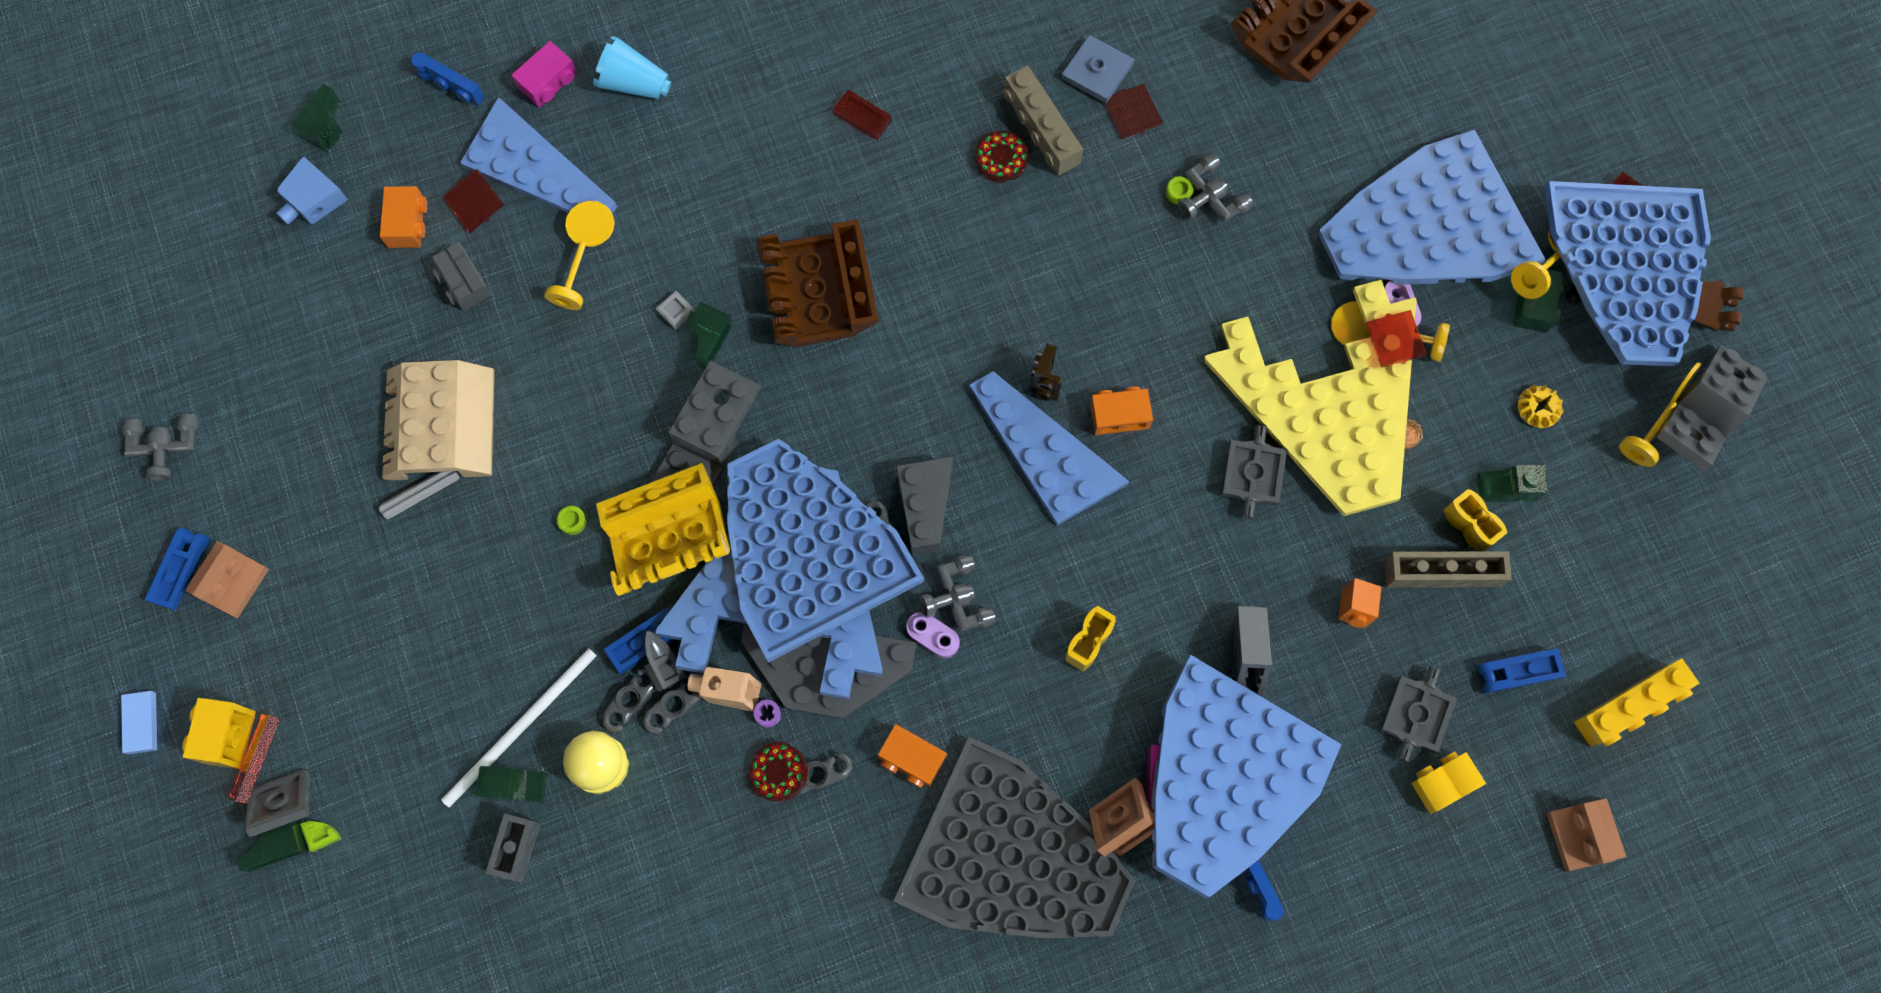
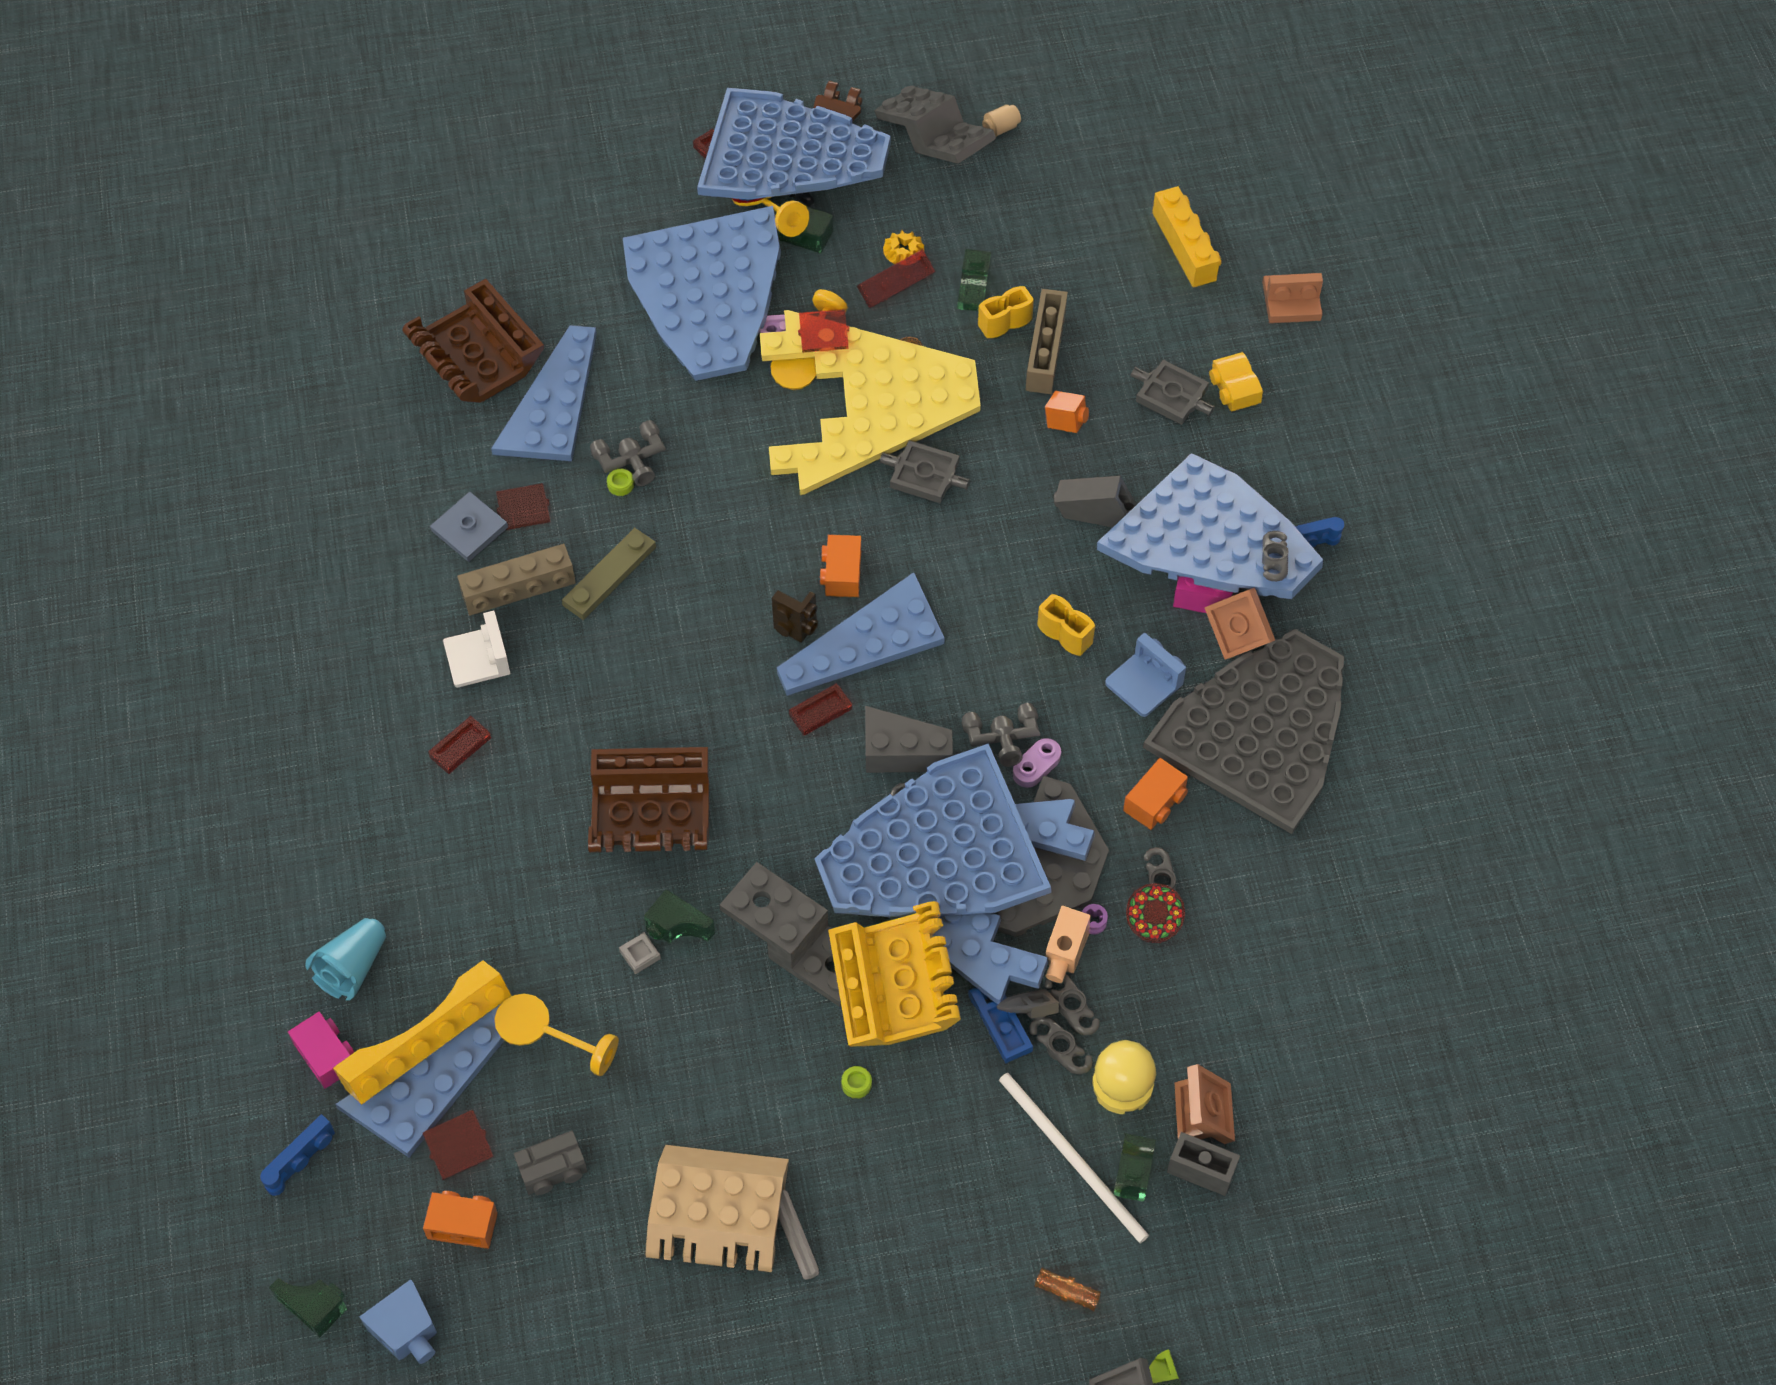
camera: 80 degrees left, 15 degrees down
(388, 739) = (1067, 1289): none -> clear orange pin
(574, 845) = (1204, 1106): none -> nougat bracket
(601, 177) = (378, 1066): none -> yellow arch
(956, 420) = (820, 709): none -> clear red tile
(958, 107) = (477, 654): none -> white bracket
(1001, 156) = (543, 625): tile -> none
(1046, 729) = (1147, 676): none -> medium blue bracket
(1072, 202) = (608, 573): none -> olive plate
(1184, 848) = (1278, 564): none -> dark grey piece
(1246, 110) = (551, 410): none -> medium blue wing
(1495, 404) = (896, 278): none -> clear red tile
(1522, 670) = (1144, 310): blue plate -> none
(1640, 449) = (961, 184): yellow piece -> none
(1746, 479) = (1002, 119): none -> tan brick

